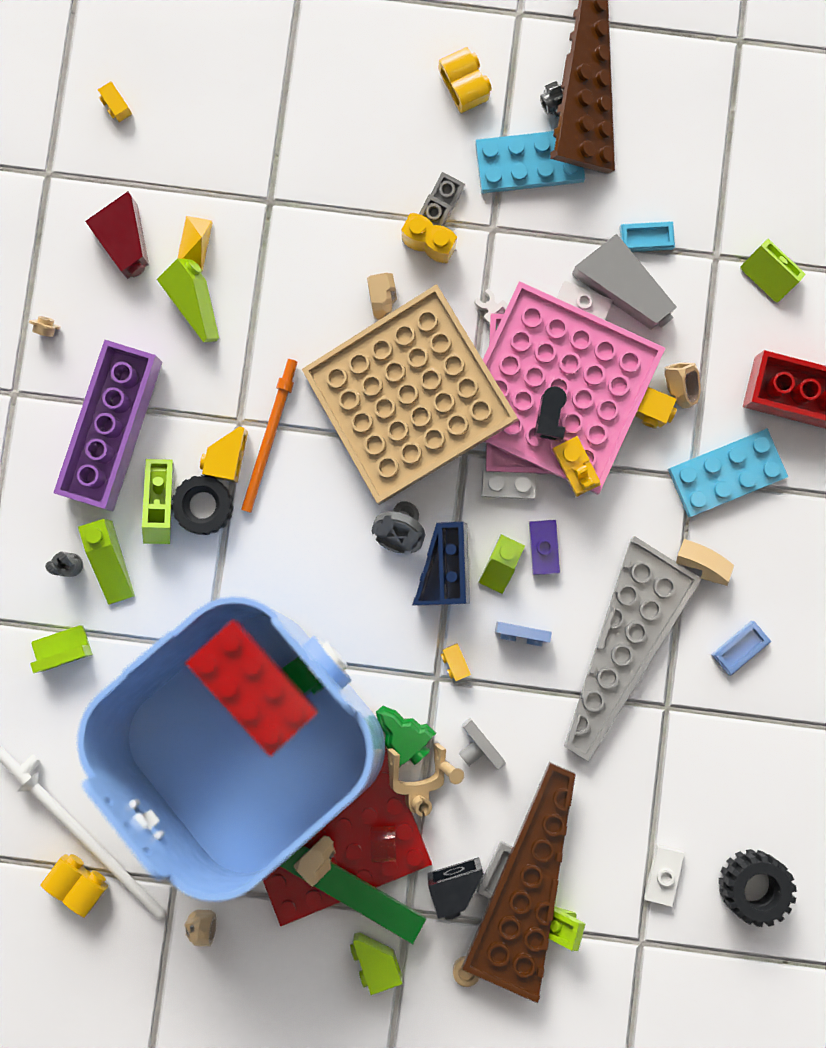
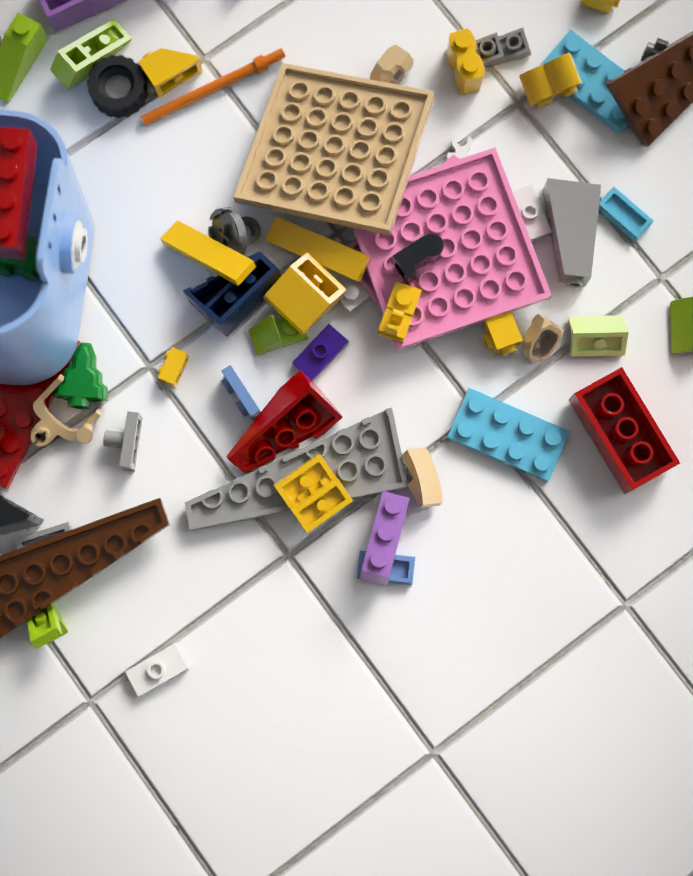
camera: 45 degrees right, 5 degrees down
(400, 560) = (208, 252): none -> yellow tile
(470, 478) = (322, 249): none -> yellow tile
(496, 519) = (305, 293): none -> yellow slope
(504, 192) = (551, 80): none -> yellow brick
(572, 612) = (290, 417): none -> red wedge
(645, 650) = (313, 493): none -> yellow slope
(717, 341) = (598, 336): none -> yellowish green panel
(726, 631) = (384, 538): none -> medium lavender brick
(776, 899) = (191, 761): black tyre -> none

